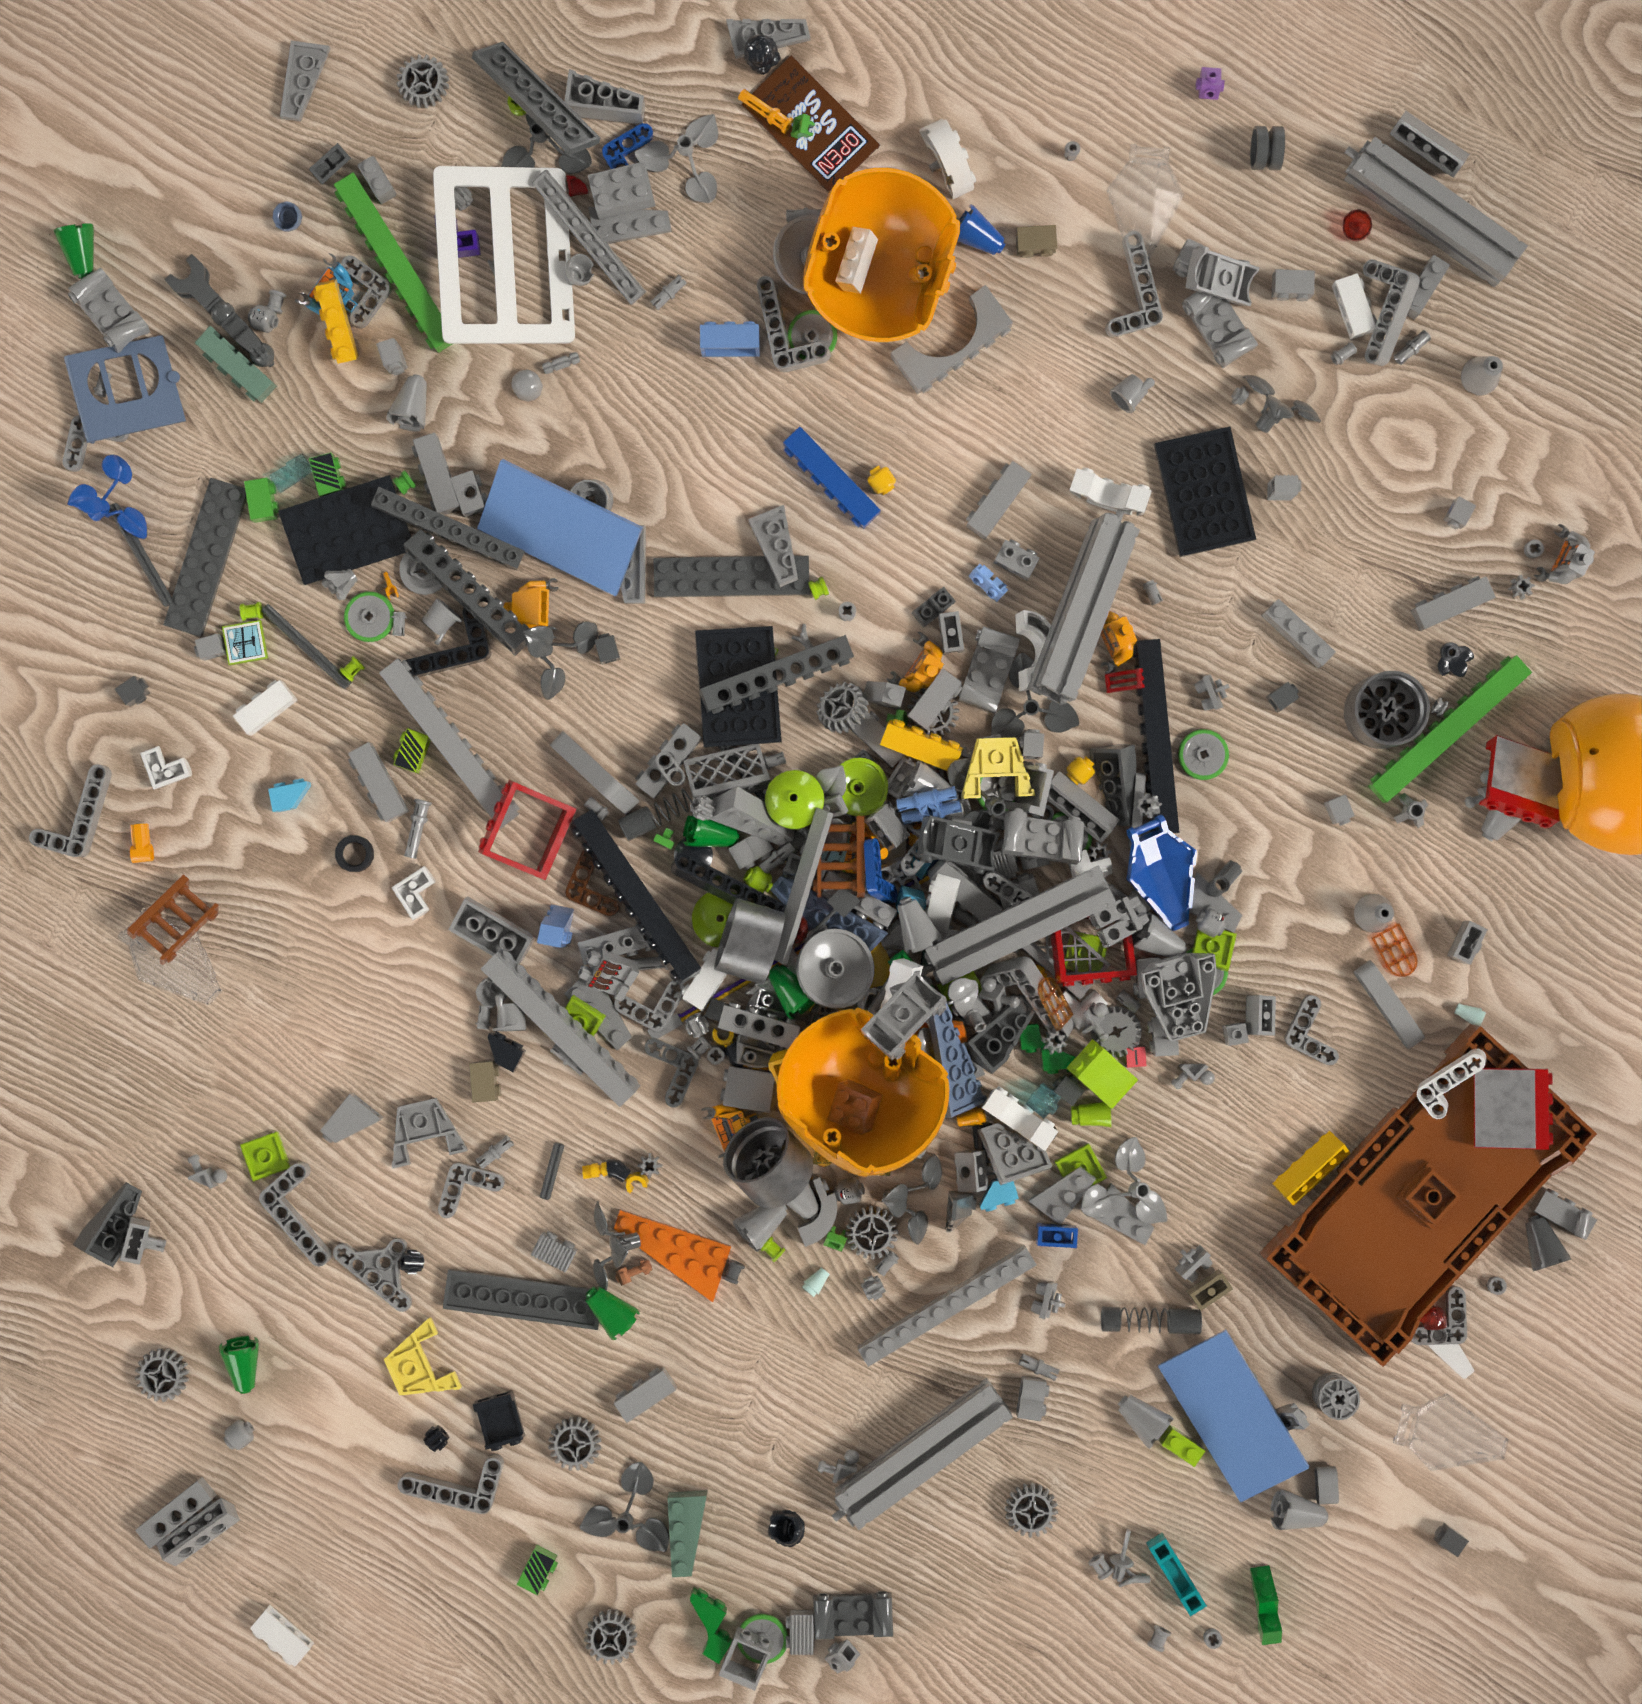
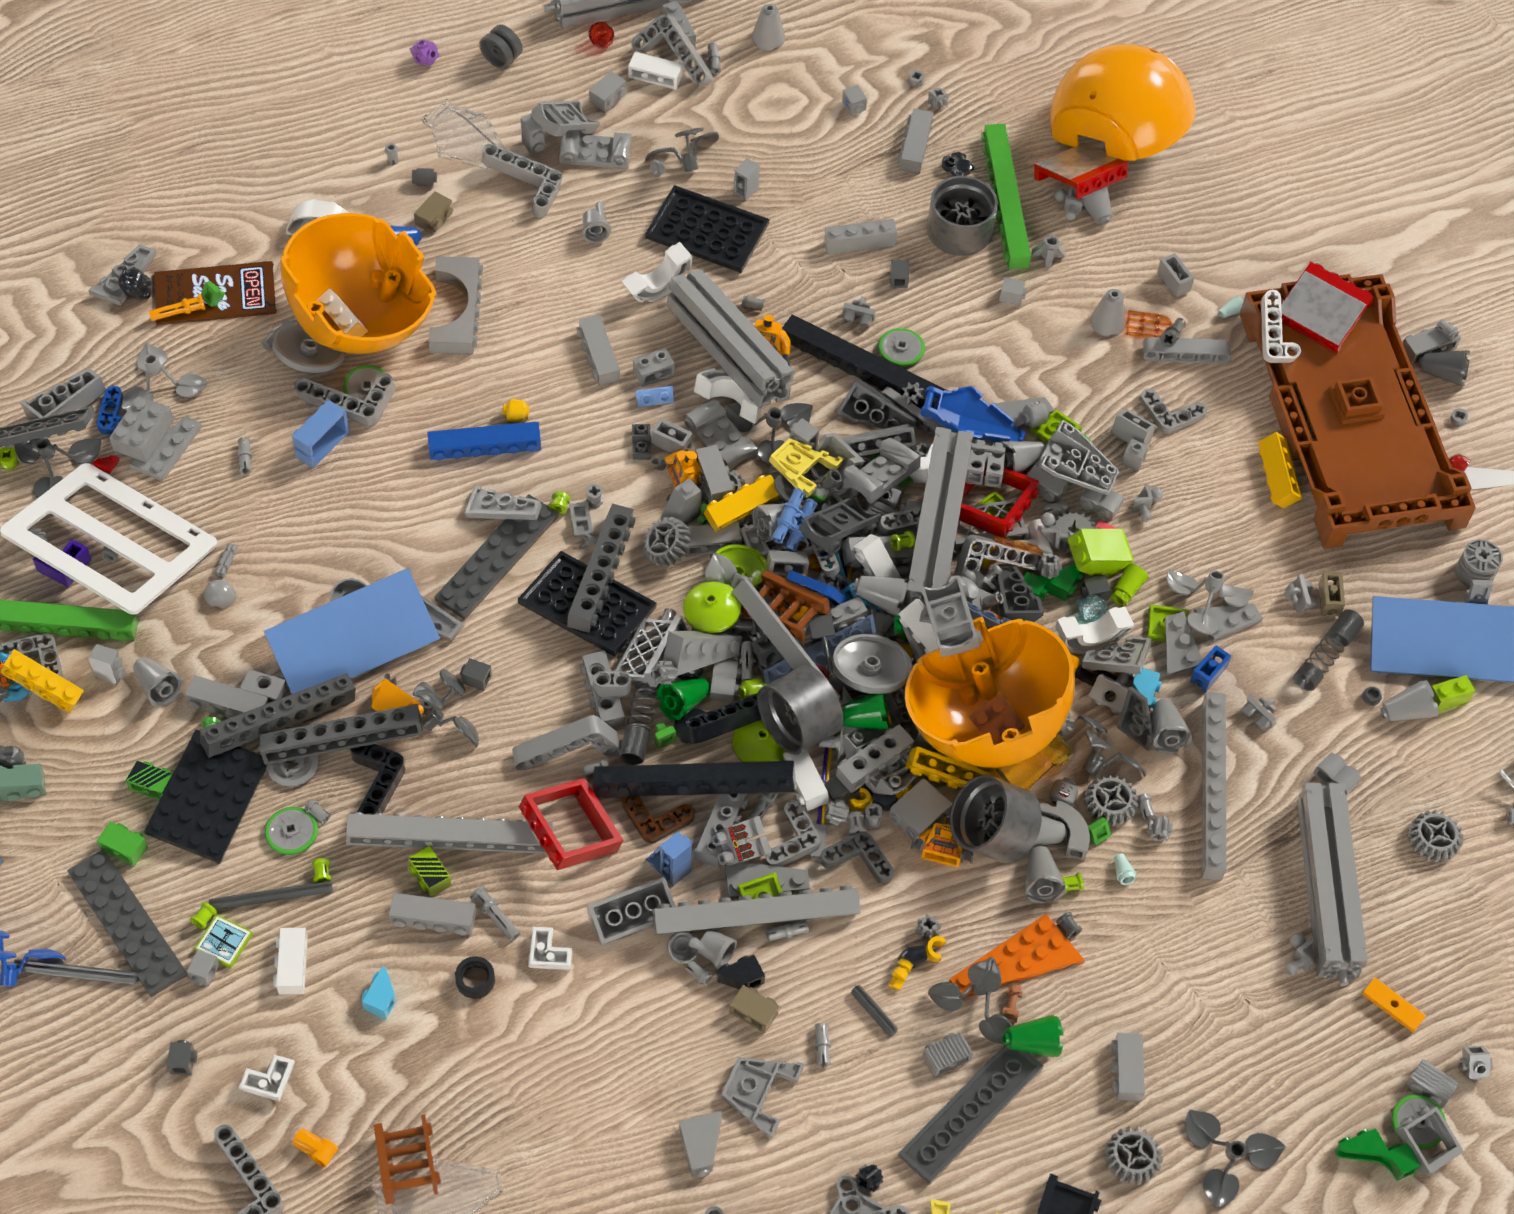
camera: 55 degrees left, 30 degrees down
(292, 473) = (123, 806): clear light blue slope -> none
(339, 582) = (244, 830): light grey rock -> none
(390, 588) = (285, 798): light orange hand -> none
(440, 618) = (342, 774): light grey hat -> none
(466, 1178) = (827, 1086): light grey beam -> none
(579, 269) = (169, 499): light grey hair -> none
(588, 237) = (152, 475): light grey tile -> none
(685, 1522) = (1276, 1116): sand green wedge -> none
(786, 1528) = (1328, 1032): black hair -> none
(817, 617) = (580, 518): none -> light grey slope
(849, 1573) = (1402, 1012): none -> light orange tile
(853, 1615) = (1444, 1030): dark grey piece -> none
(974, 1235) = (1169, 728): none -> light grey cone
(976, 904) = (904, 540): none -> lime bush
(1038, 1367) = (1313, 755): light grey pin -> none
(1069, 200) = (424, 177): none -> dark grey brick
(1080, 770) = (848, 425): yellow head -> none
(1133, 1380) = (1372, 696): none -> dark grey plate
(1139, 678) = (810, 358): red tile -> none
(1224, 878) = (1008, 389): dark grey piece -> none
(1339, 356) = (682, 99): light grey pin -> none
(1390, 985) = (1172, 333): none -> dark grey pin
(1452, 1325) = (1475, 456): light grey beam -> none
(1572, 559) = (942, 57): light grey torso -> none

